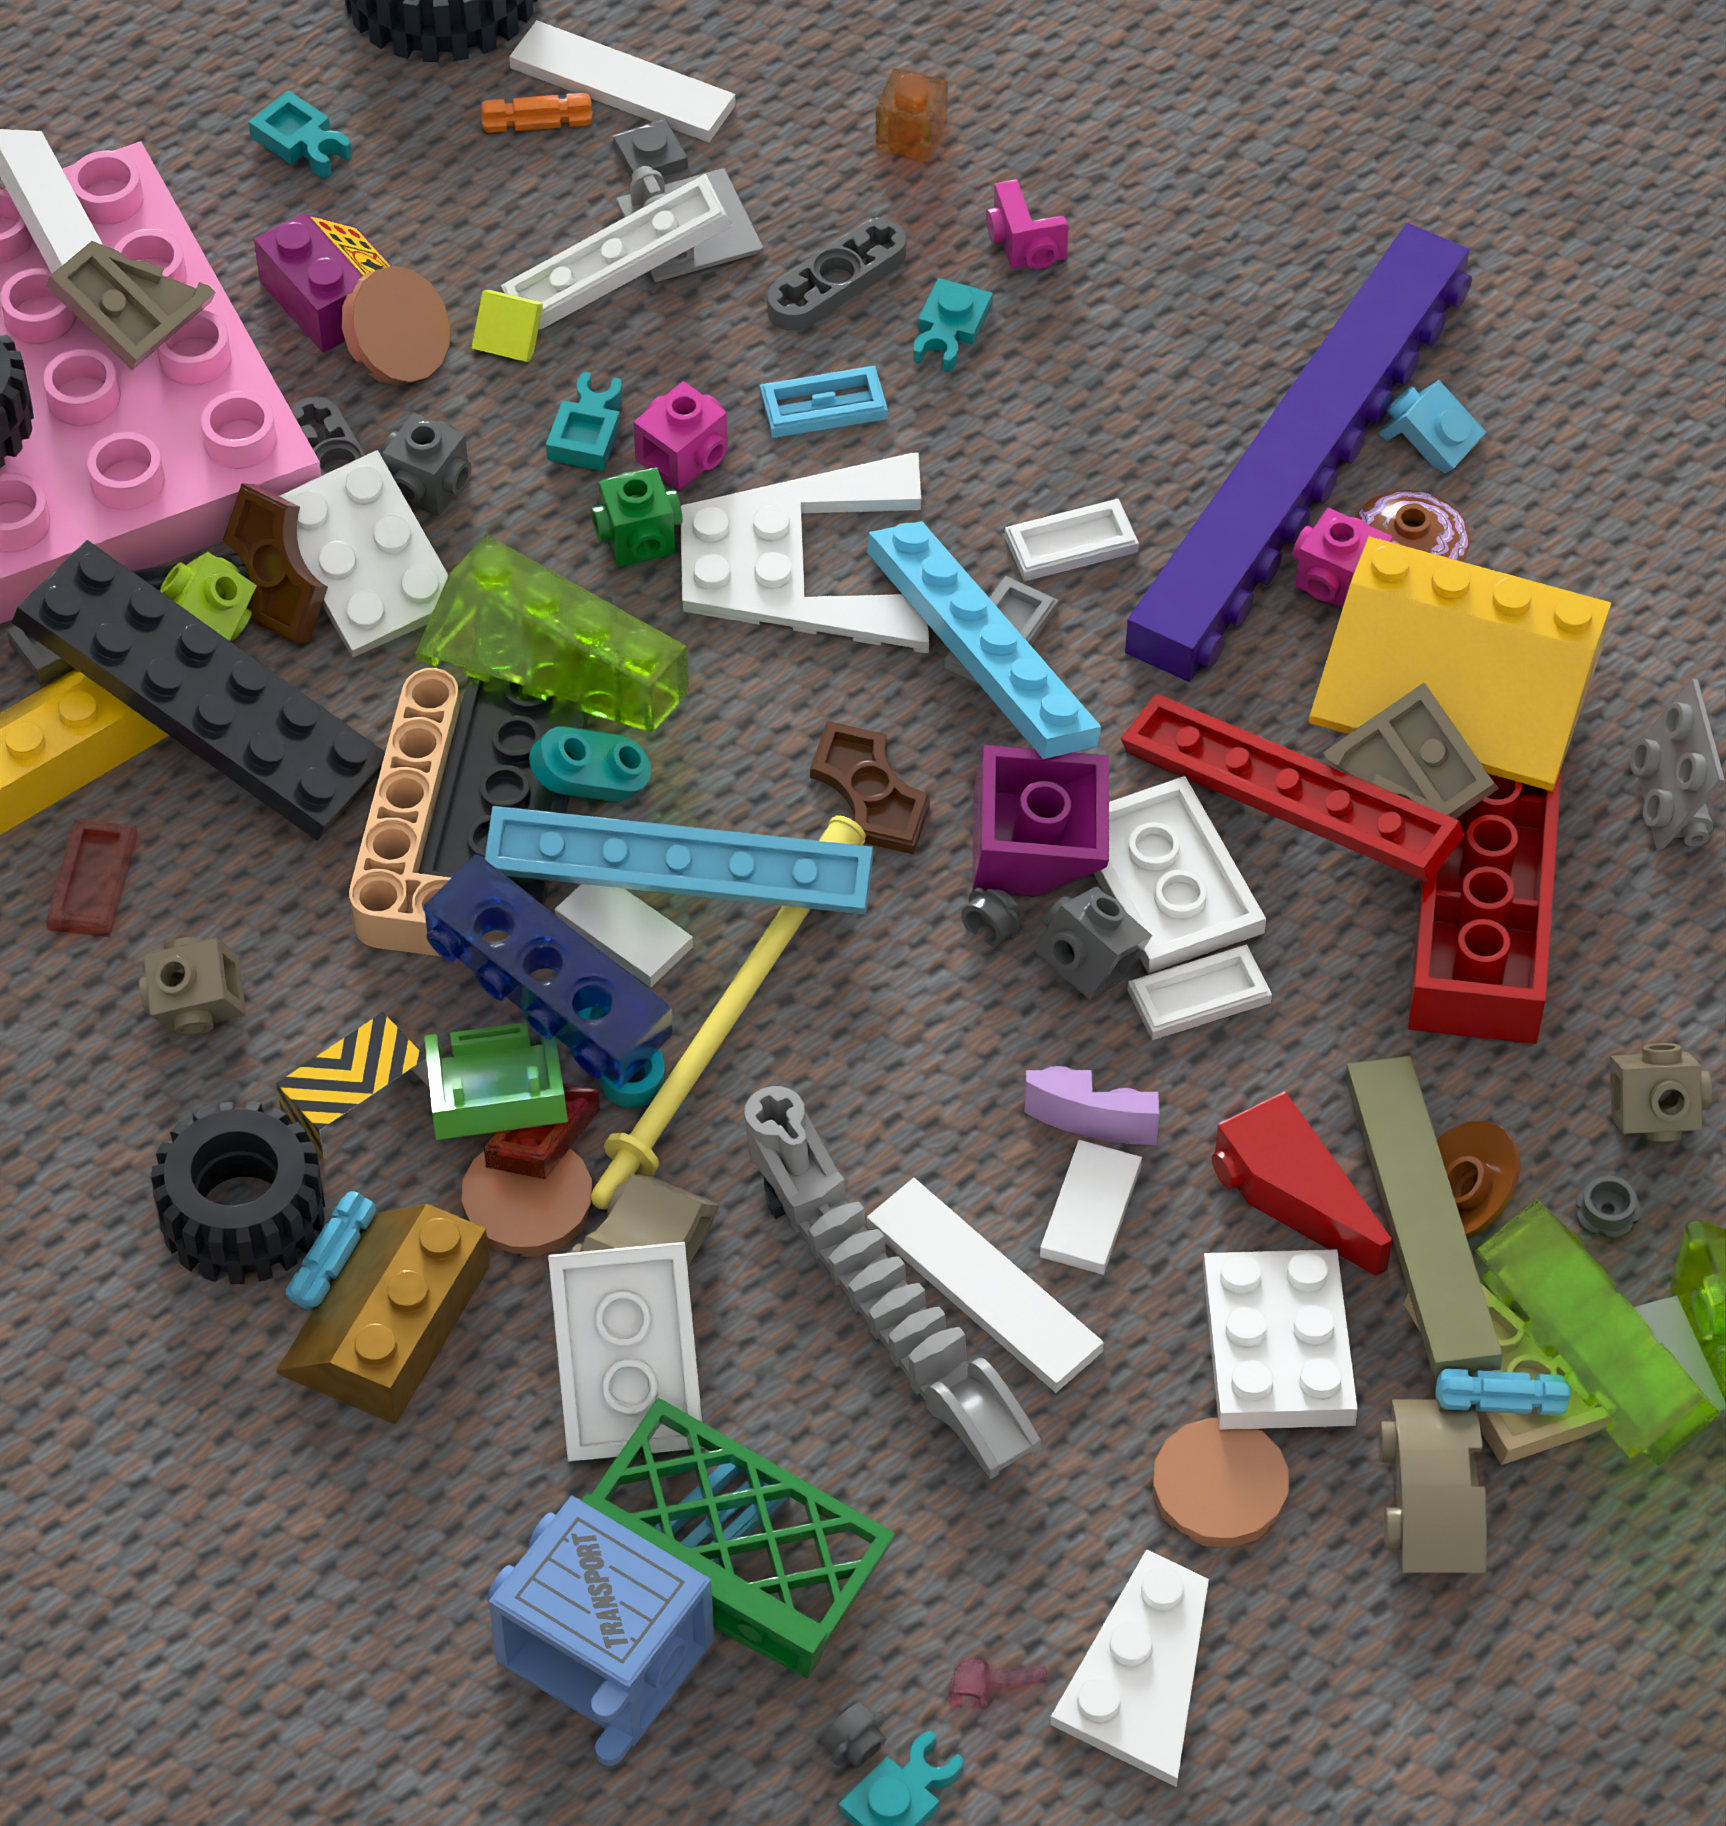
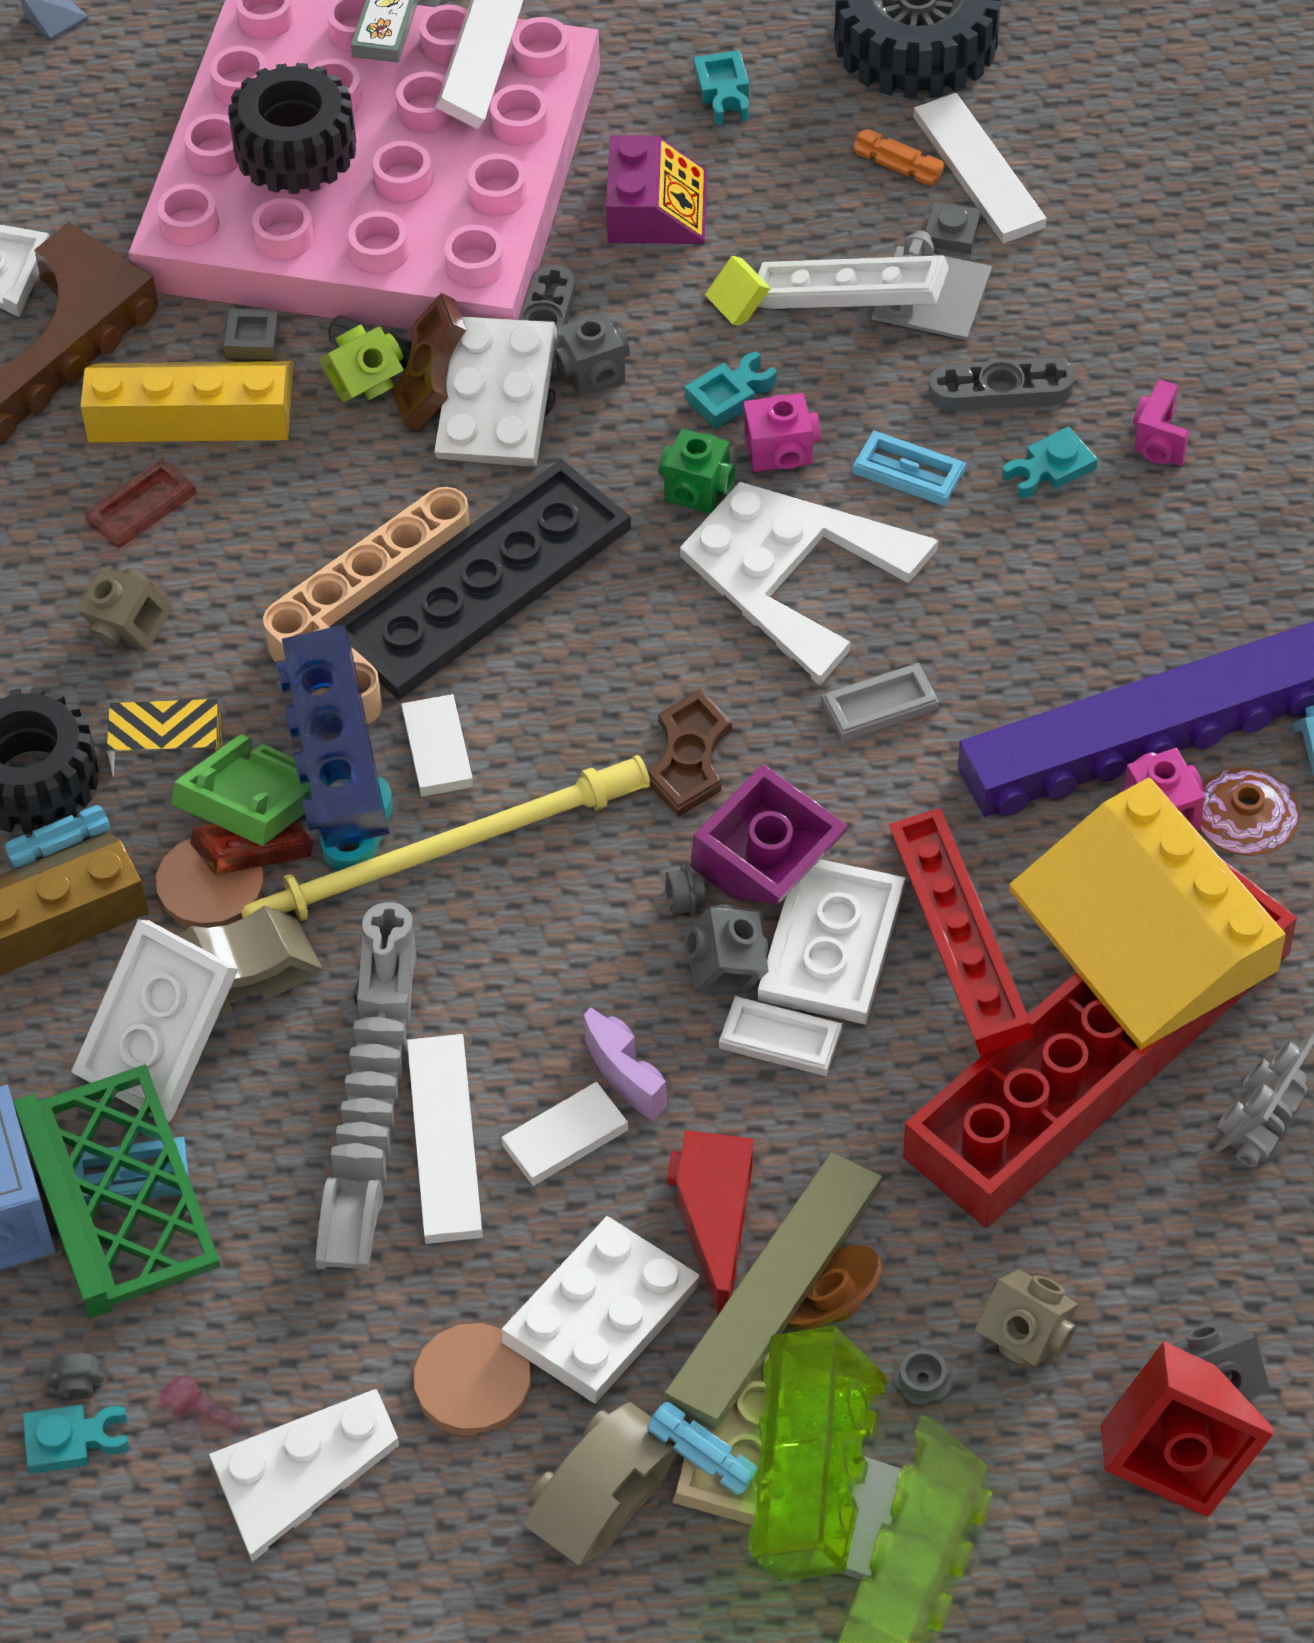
camera: 40 degrees right, 0 degrees up
(126, 300) = (465, 126): dark tan wing -> none
(200, 689) = (294, 414): black plate -> none
(396, 325) = (656, 248): nougat tile -> none
(553, 638) = (546, 510): clear neon green wedge -> none
(602, 767) = (508, 623): teal plate -> none
(680, 860) = (497, 719): medium azure plate -> none
(911, 115) = (1152, 300): clear orange brick -> none
(983, 640) = (845, 695): medium azure plate -> none
(1071, 539) = (992, 666): white tile -> none
(1415, 755) = (1051, 960): dark tan wing -> none

